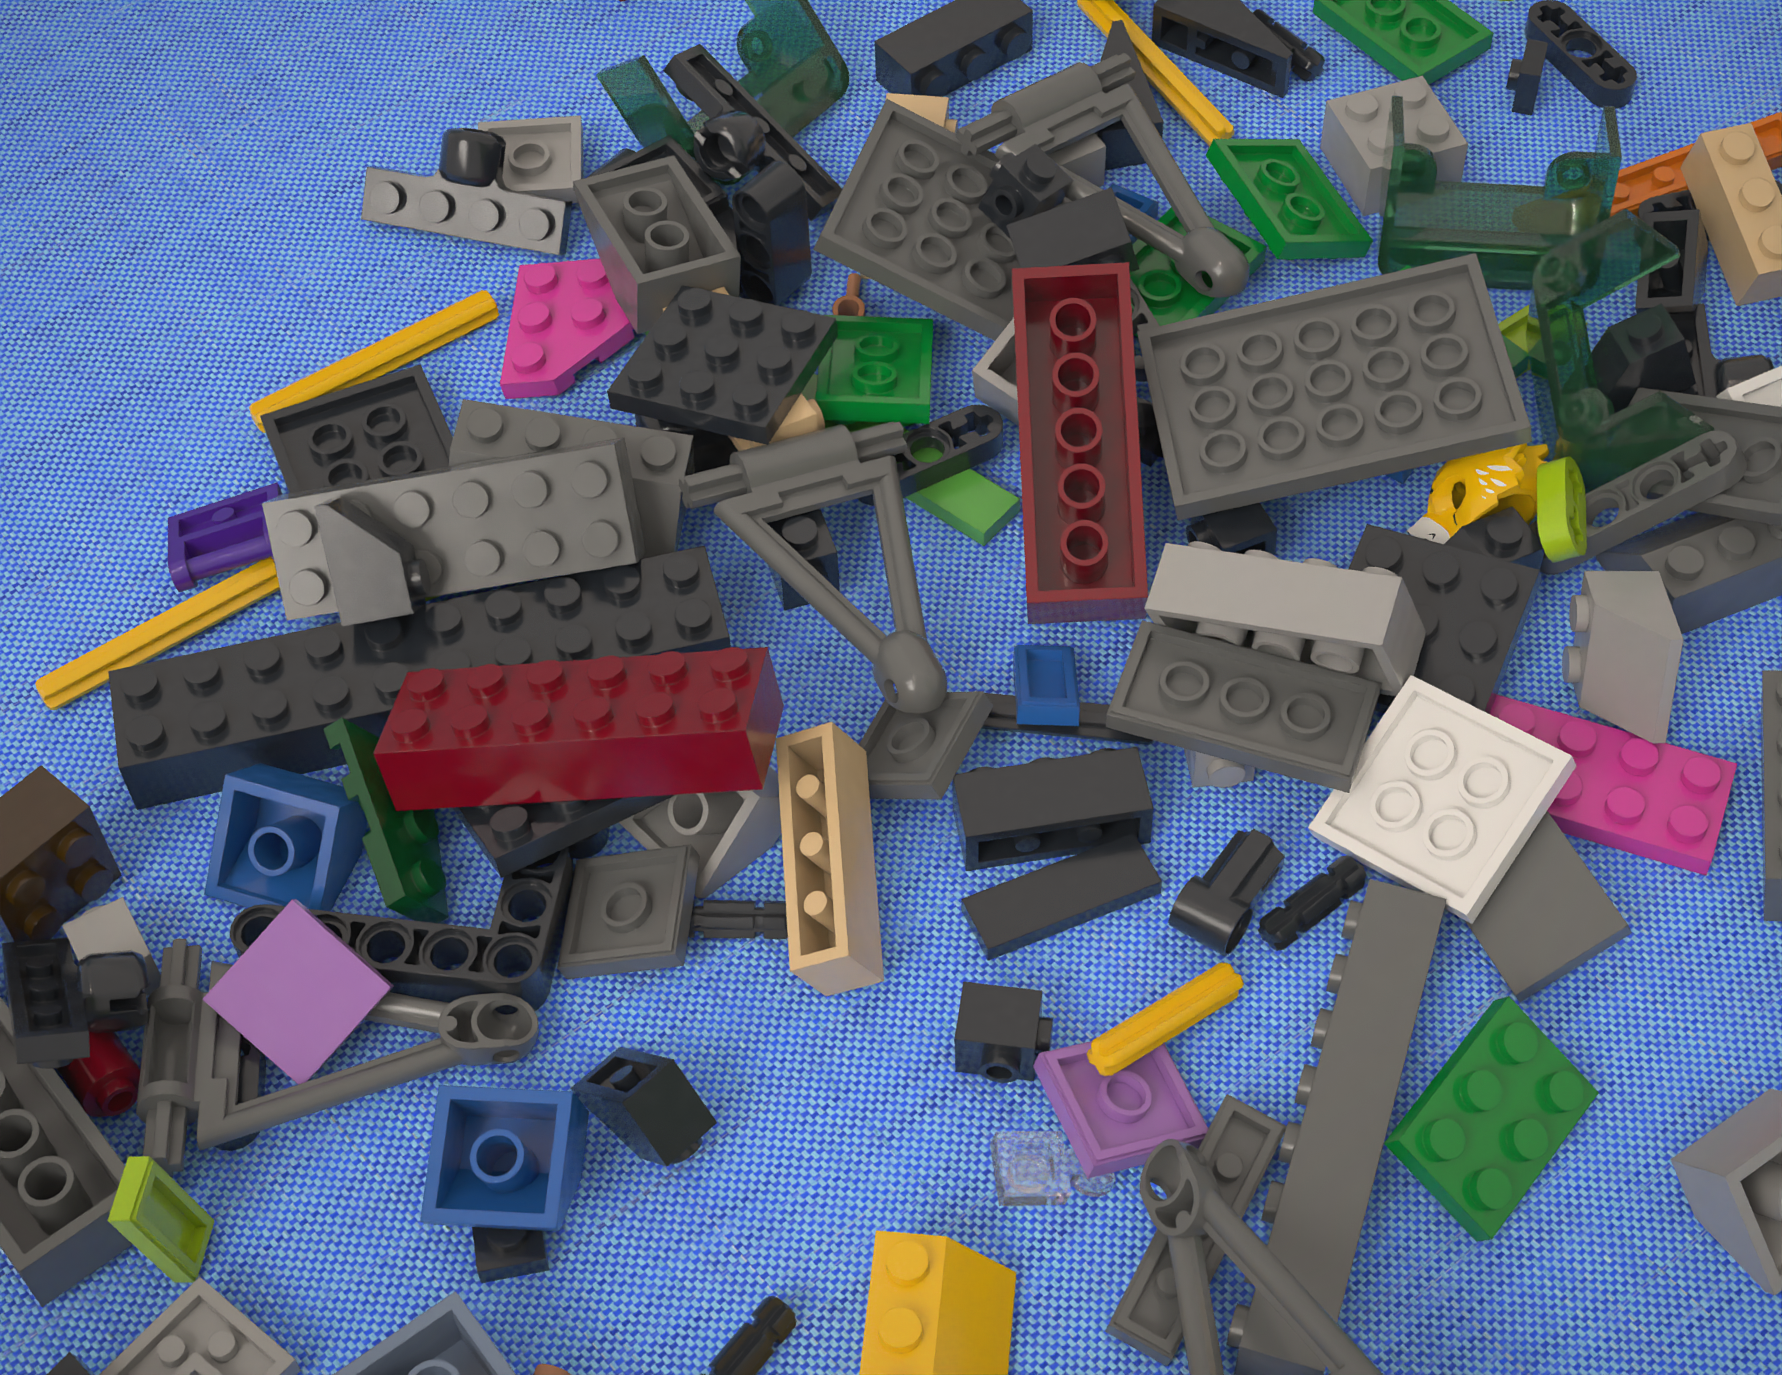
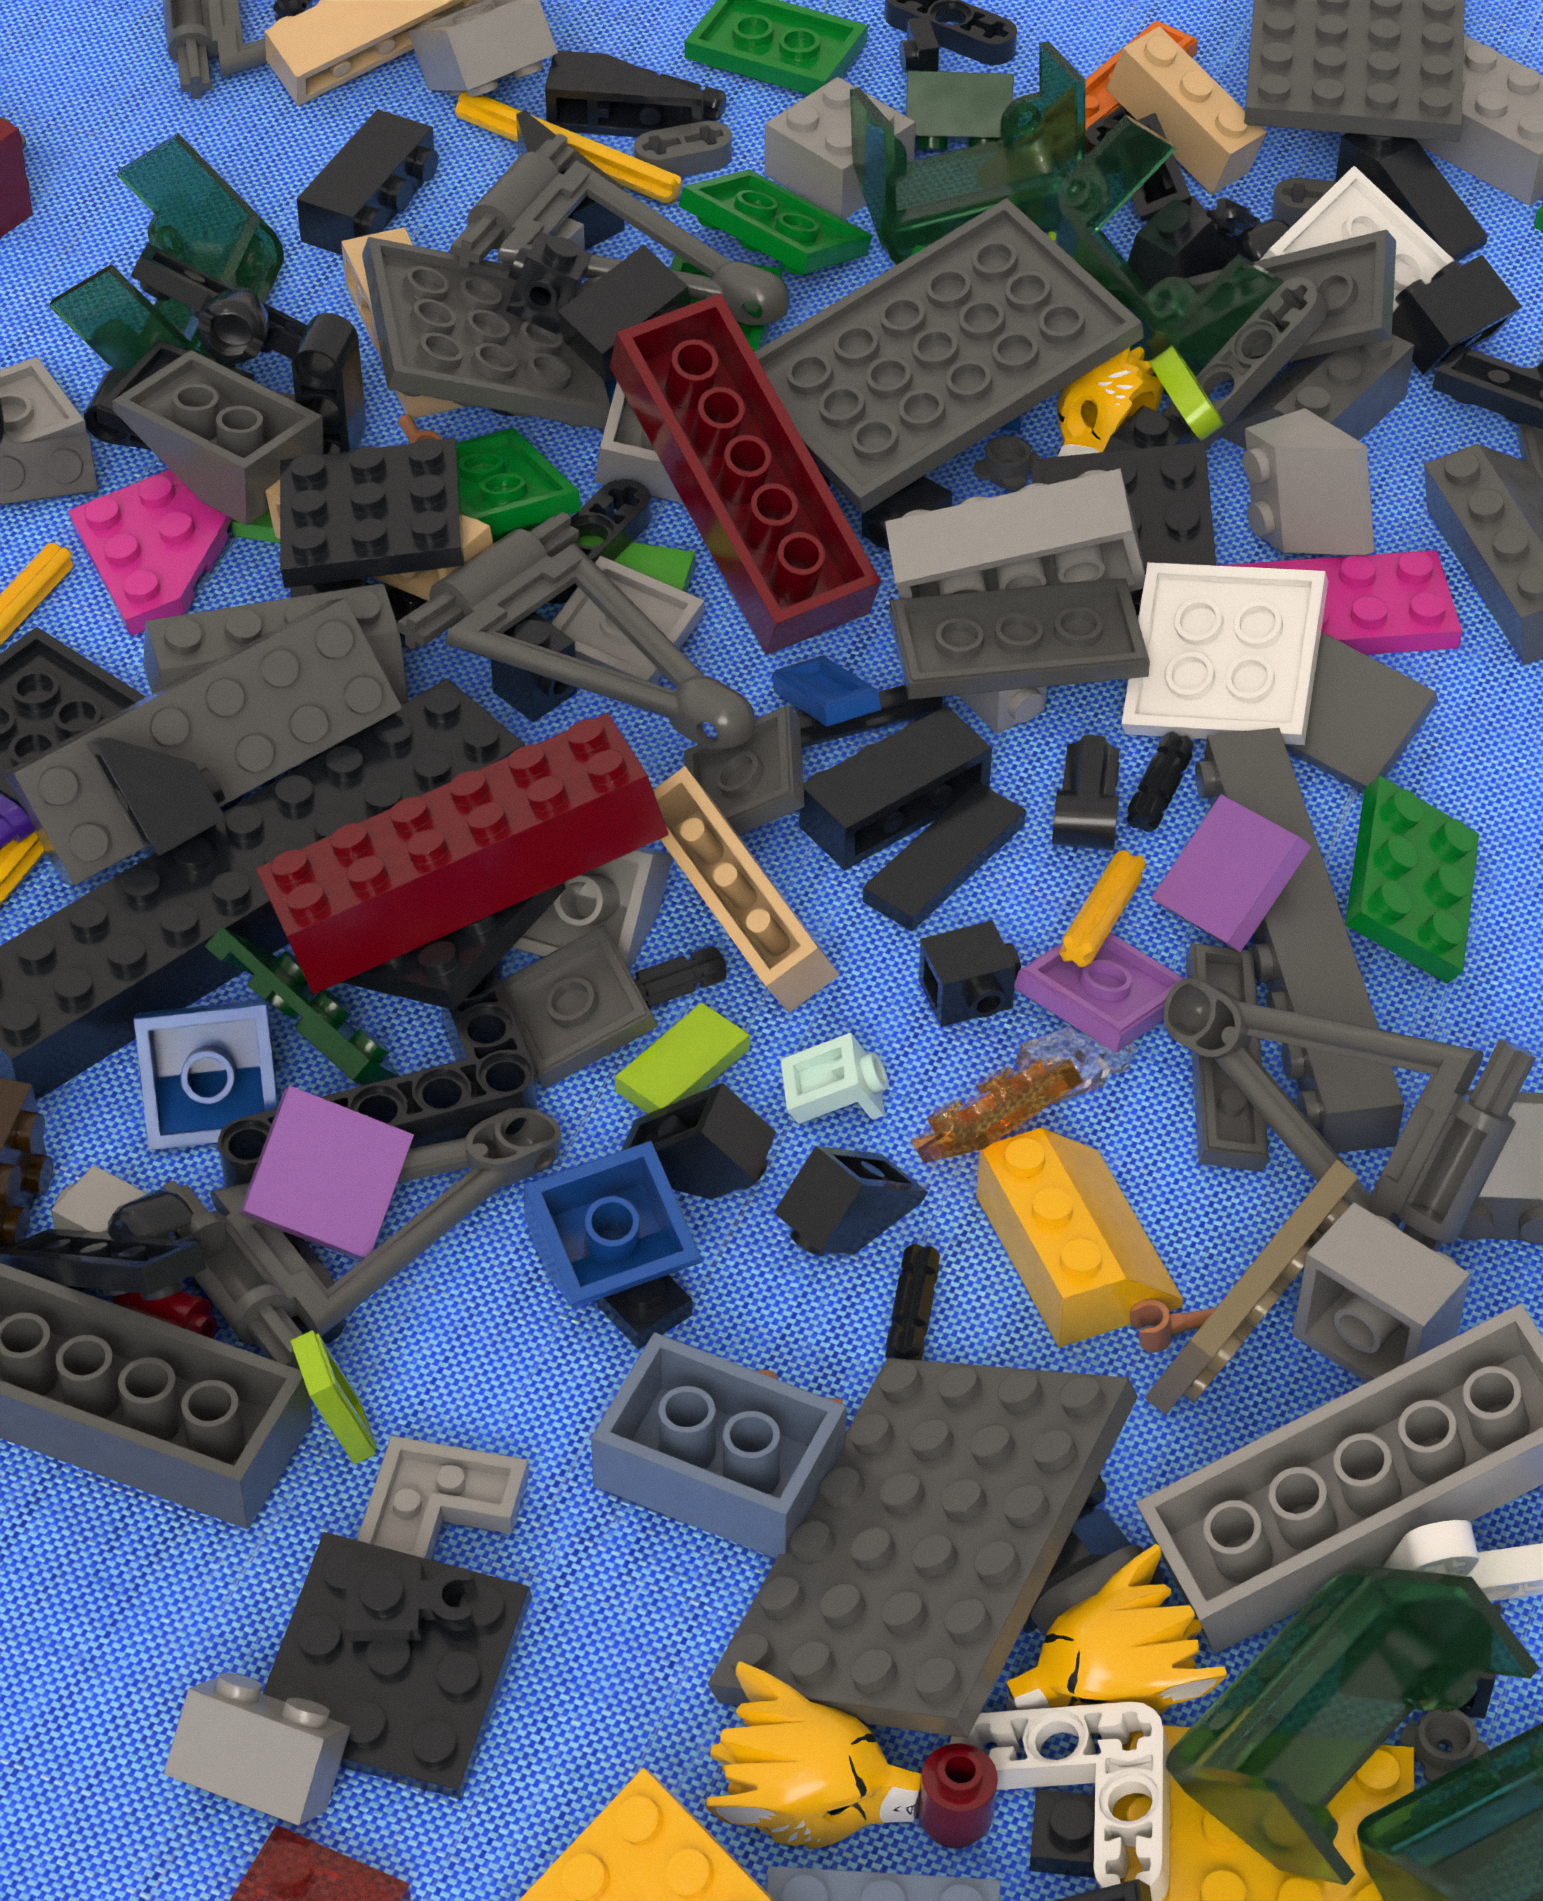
camera: 30 degrees left, 5 degrees down
(695, 1007) = (682, 1060): none -> lime tile
(744, 1221) = (846, 1200): none -> black slope
(811, 1088) = (833, 1078): none -> light aqua bracket
(926, 1195) = (1003, 1104): none -> clear orange plate
(941, 546) = (603, 642): none -> light grey plate
(1257, 100) = (686, 148): none -> dark grey beam
(1303, 1038) = (1231, 872): none -> medium lavender tile
(1362, 507) = (1006, 462): none -> dark grey plate
(1522, 139) = (957, 107): none -> dark green slope
(1726, 340) = (1232, 217): none -> black axle

